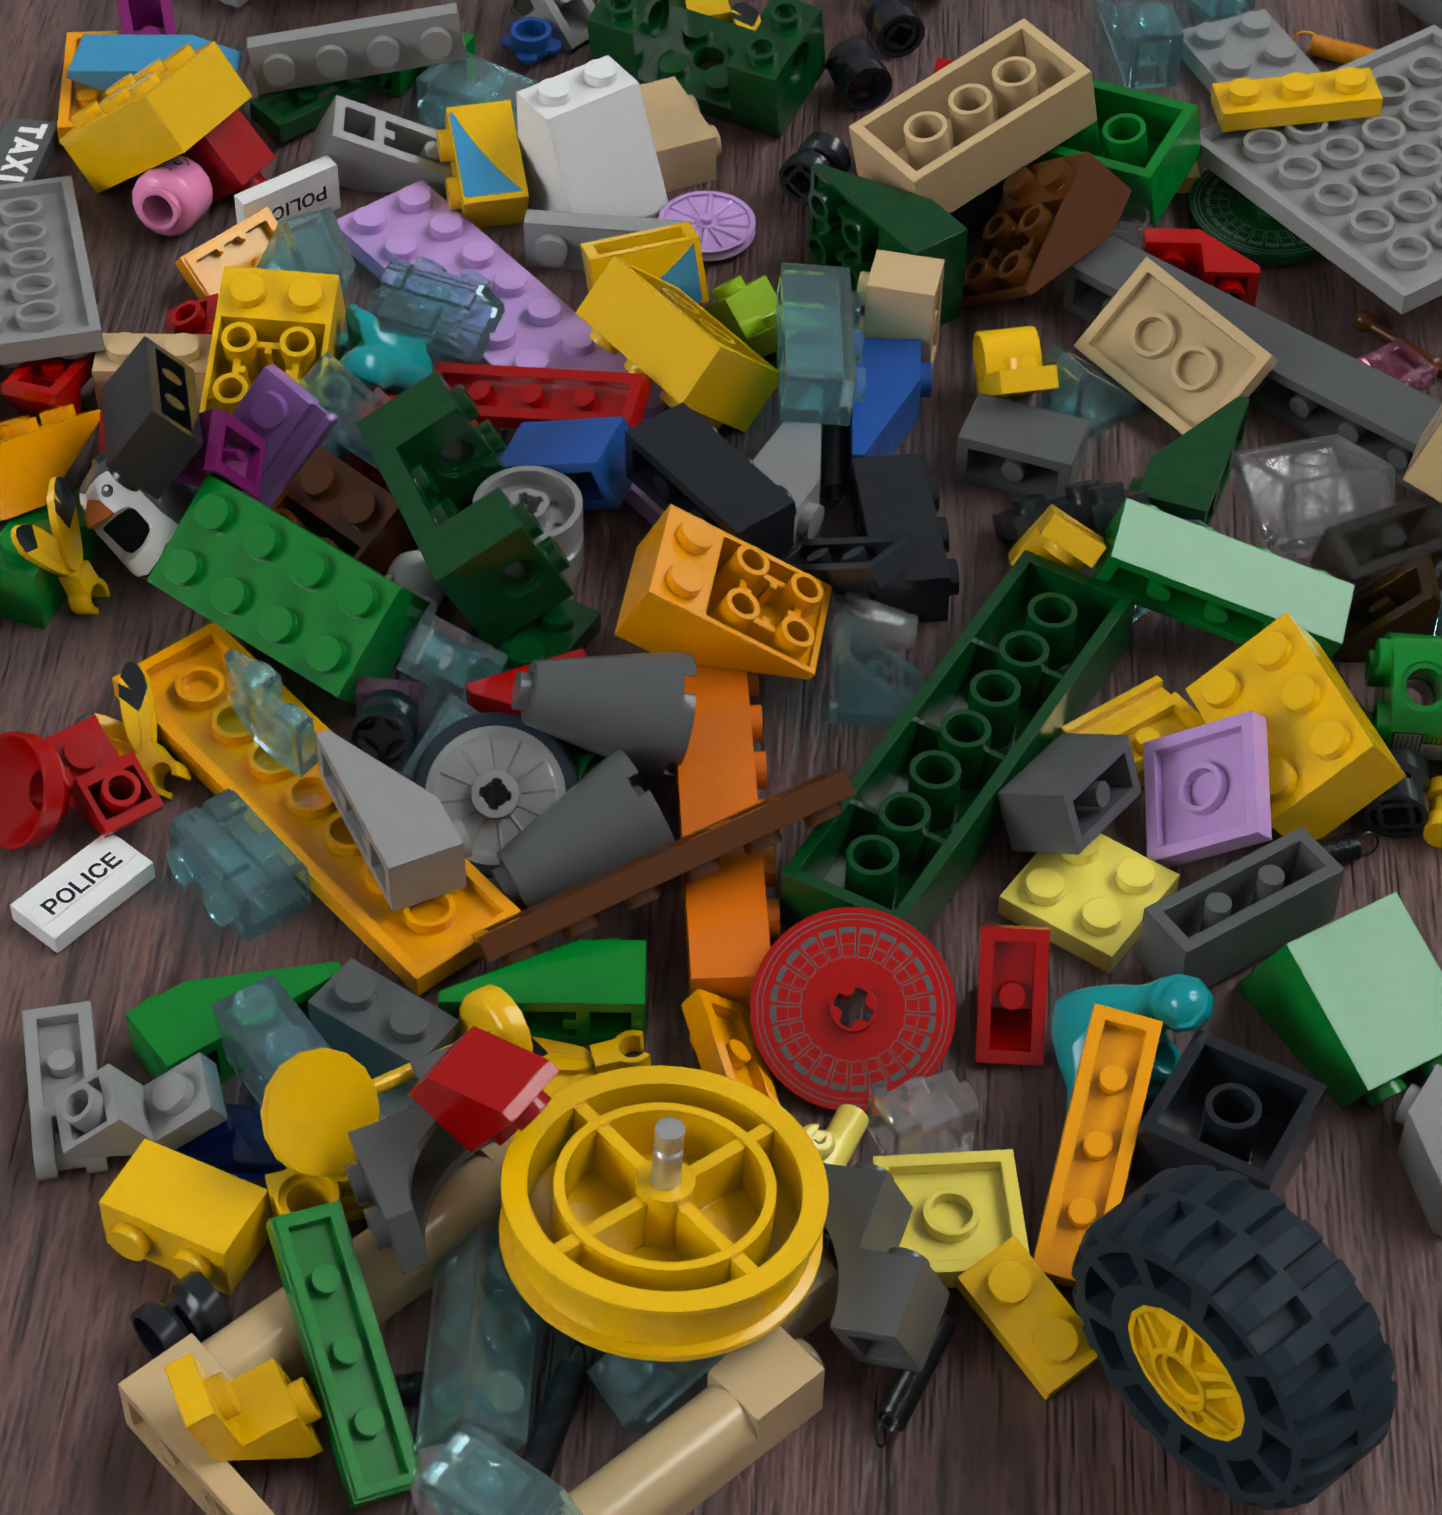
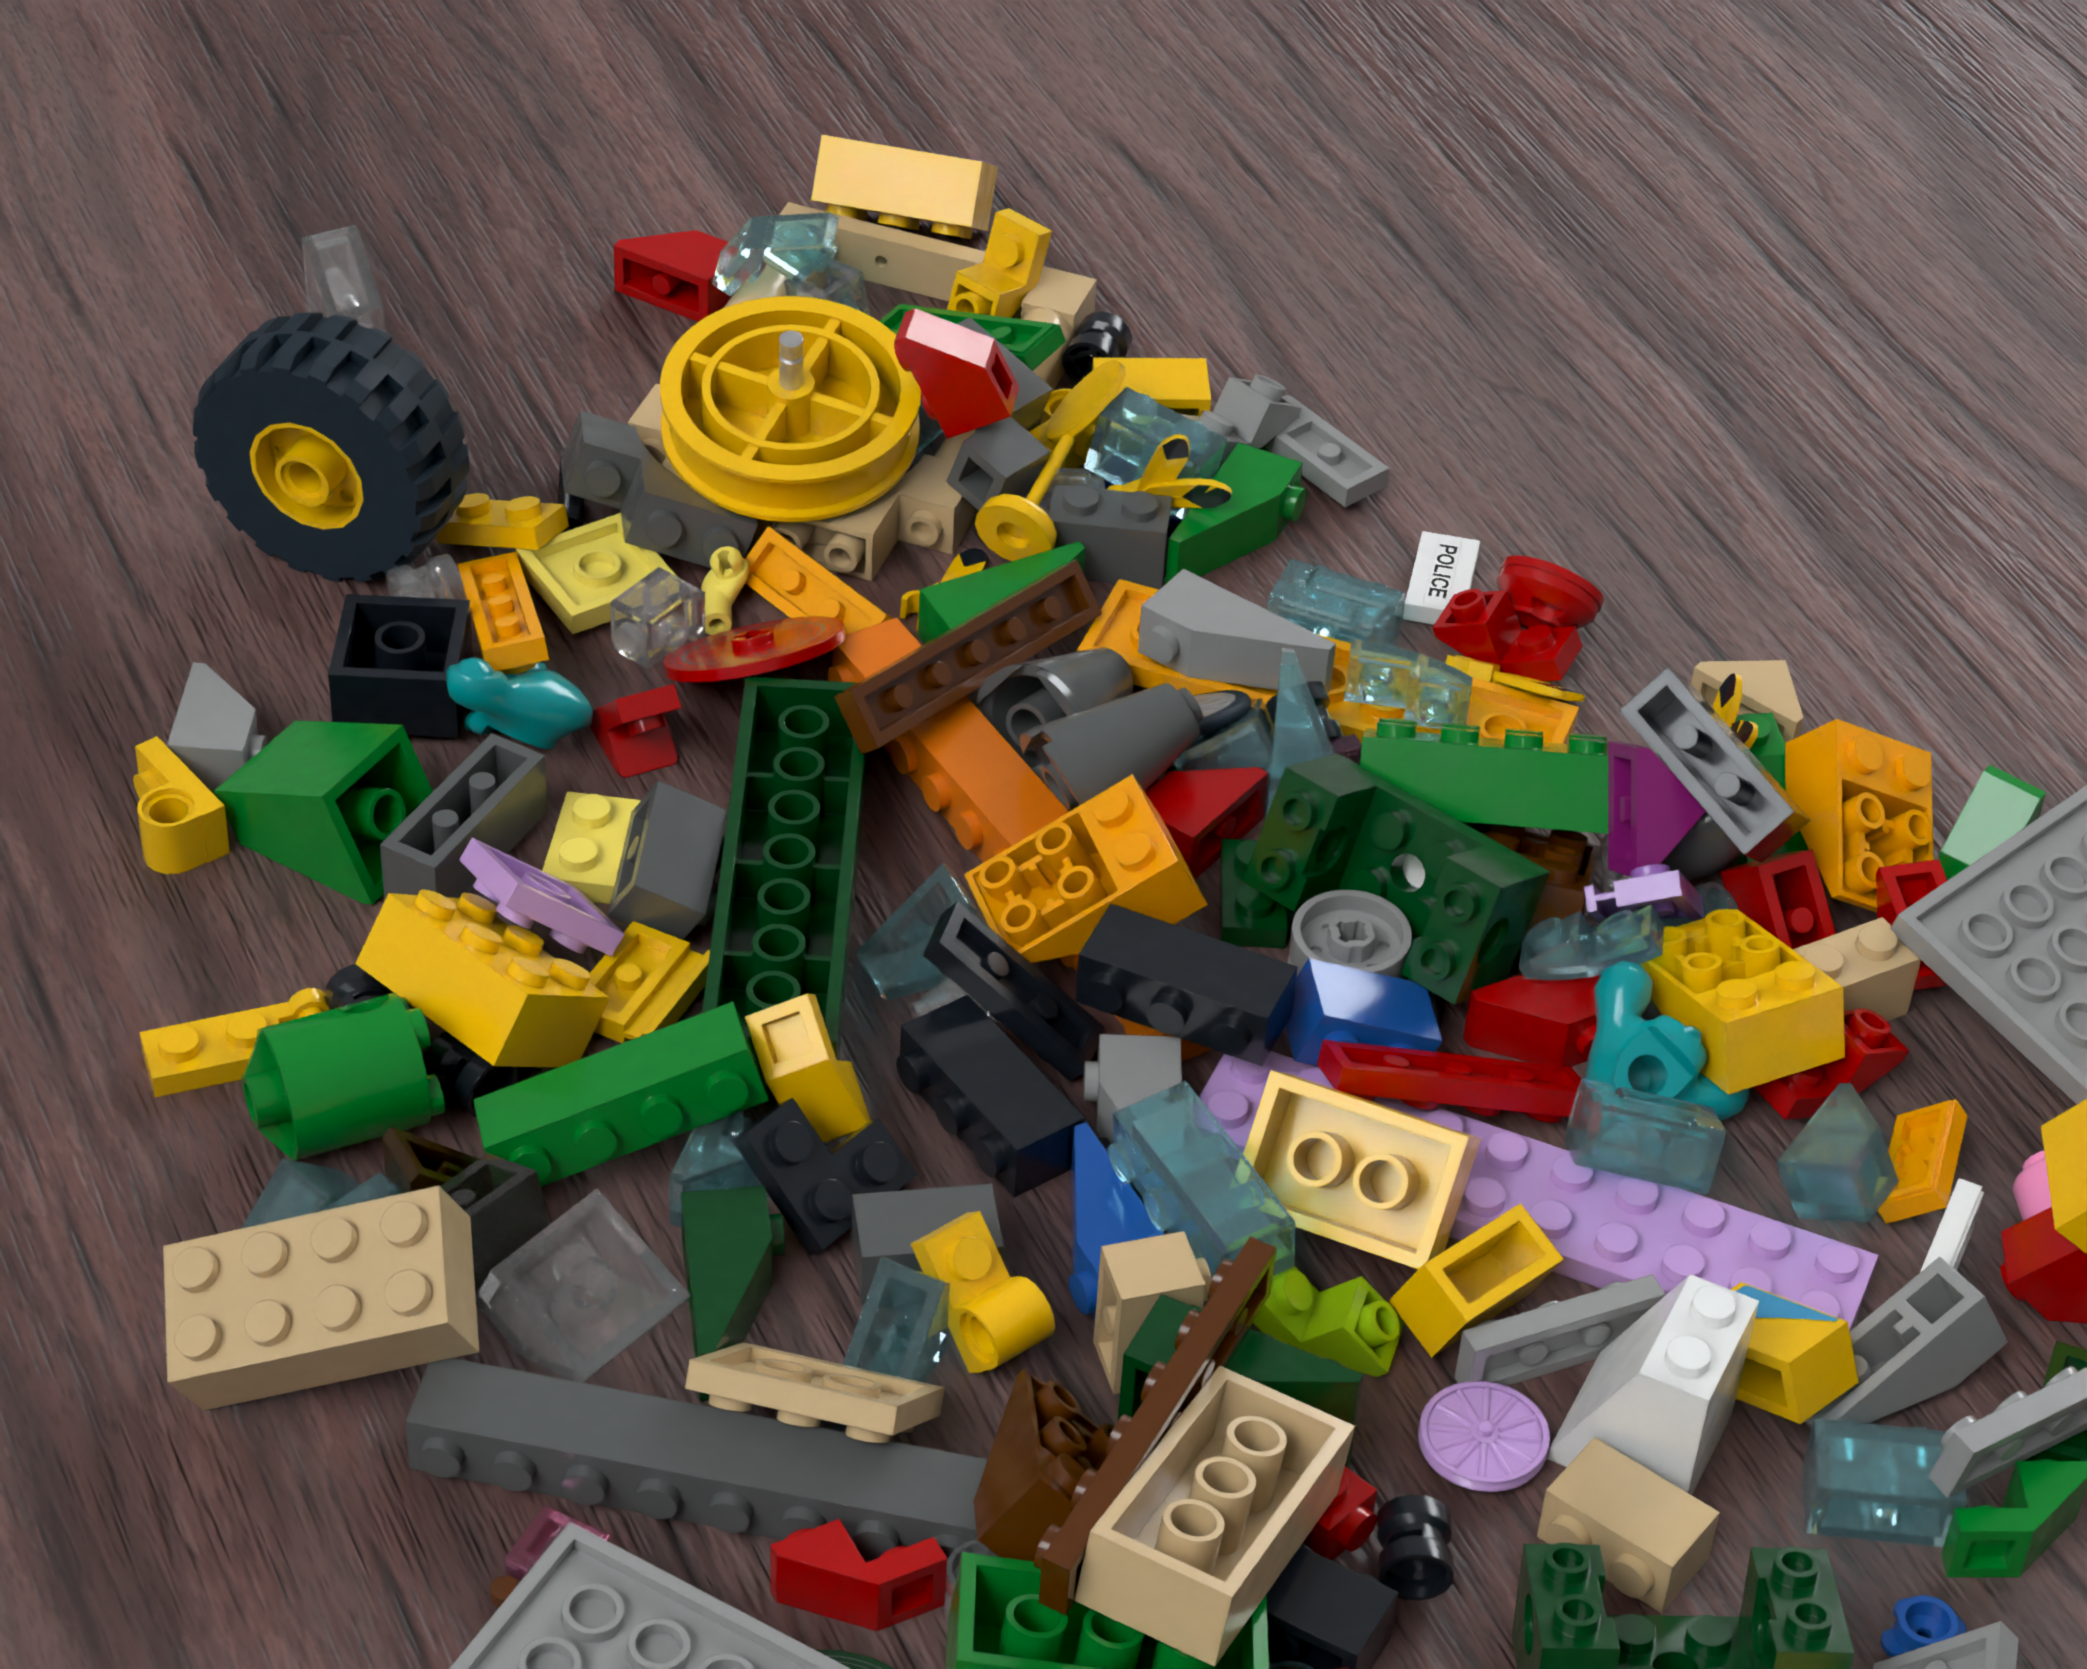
camera: 150 degrees right, 5 degrees down
(305, 988) = (1161, 476): none -> yellow piece
(980, 154) = (1201, 1346): none -> reddish brown plate

